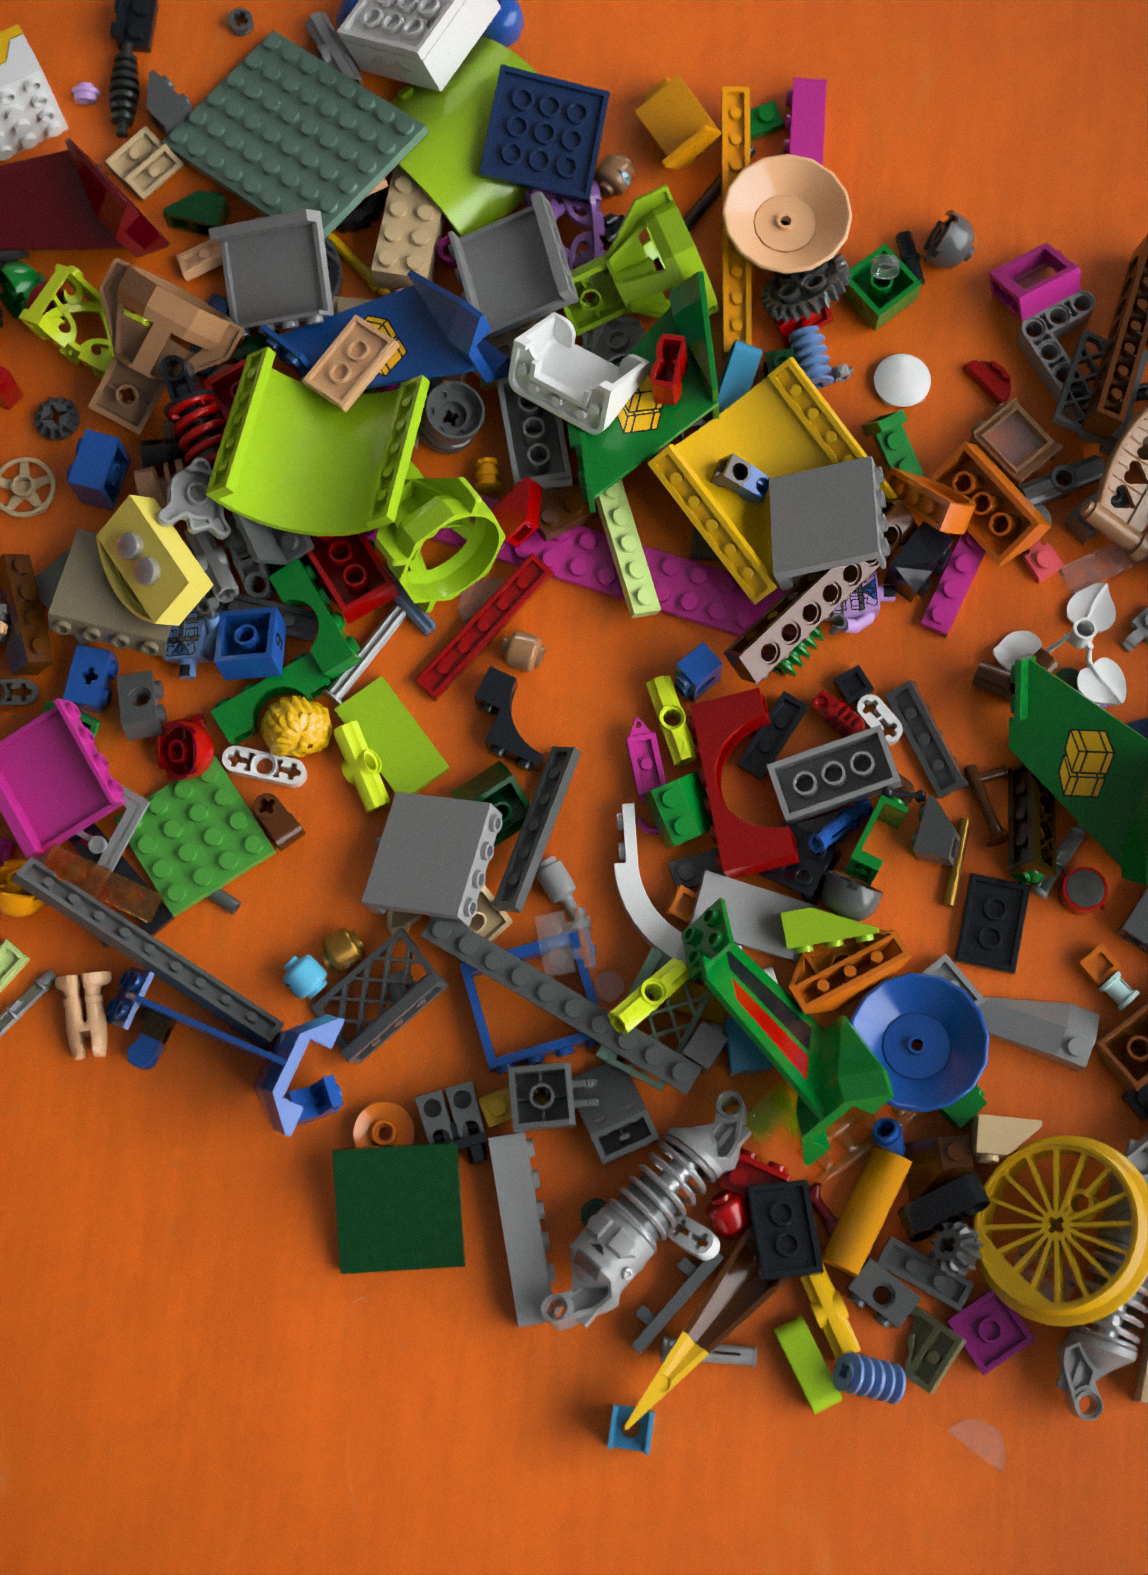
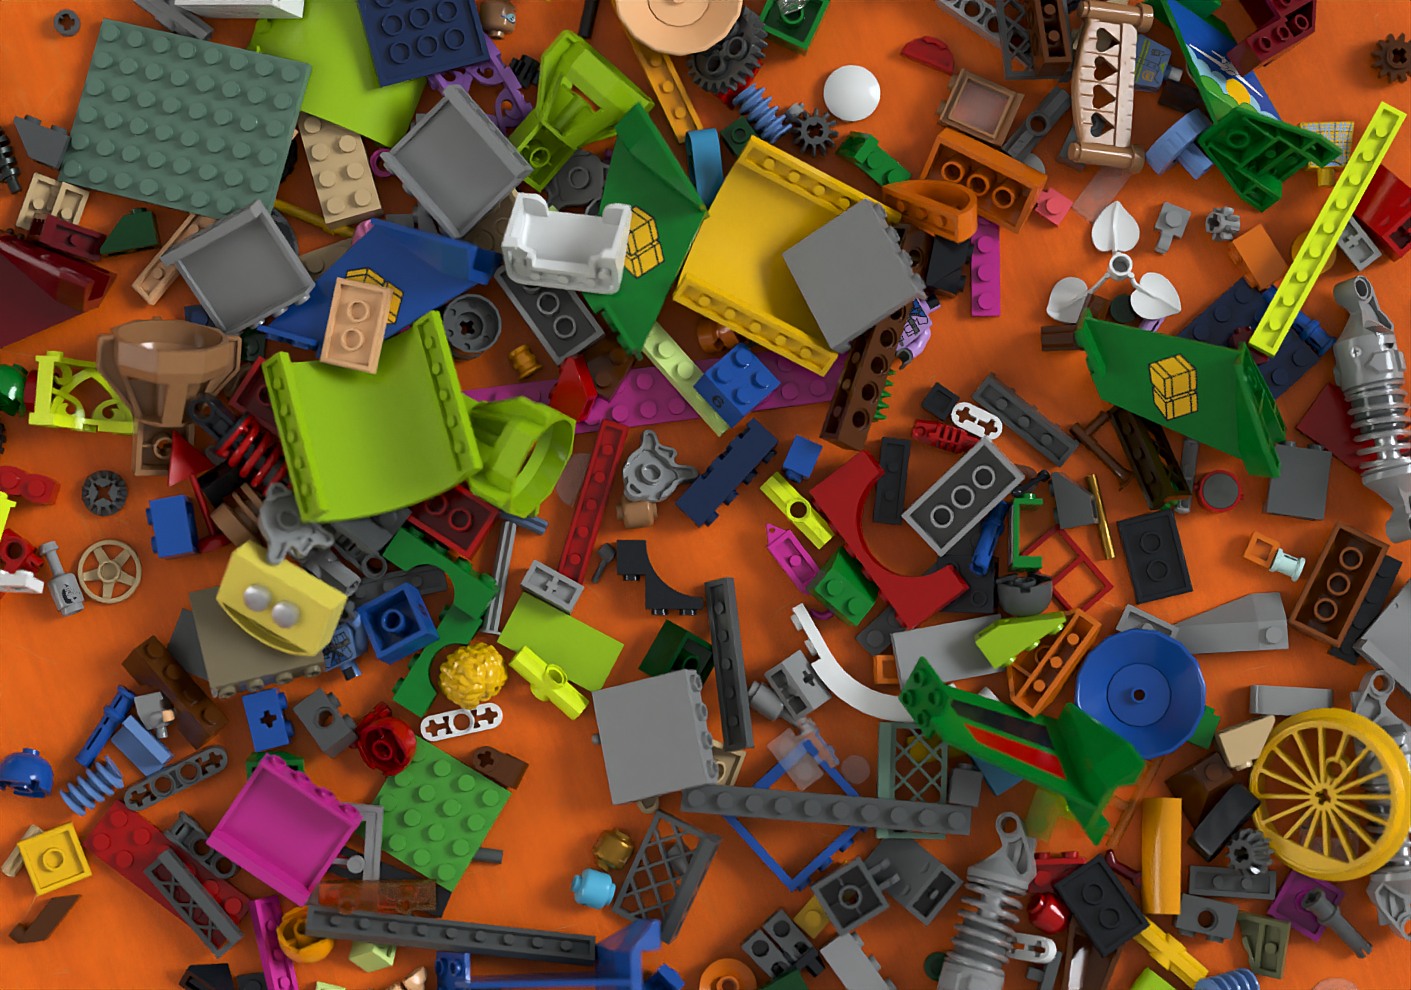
camera: 35 degrees left, 10 degrees up
(69, 937) = (372, 955): none -> yellowish green panel
(139, 417) = (184, 464): none -> red piece
(141, 186) = (65, 236): none -> dark red bracket
(409, 682) = (551, 587): none -> light grey hinge
(475, 678) = (607, 553): none -> dark grey hand
(556, 623) = (652, 472): none -> light grey tile
(592, 878) = (798, 685): none -> light grey brick
(623, 656) = (727, 474): none -> dark blue wedge
(638, 1006) = (893, 783): neon yellow piece -> none
(669, 369) = (650, 199): red brick -> none
(669, 575) = (736, 384): none -> blue brick
(676, 529) = (716, 337): none -> orange wheel
(741, 478) = (756, 265): leg -> none
(852, 388) = (812, 123): none -> dark grey gear
(889, 1135) = (1152, 785): blue cone -> none
(910, 895) = (1082, 557): none -> red window
(1008, 1352) = (1329, 915): none -> dark grey pin
(1061, 1119) = (1287, 700): none -> light grey beam

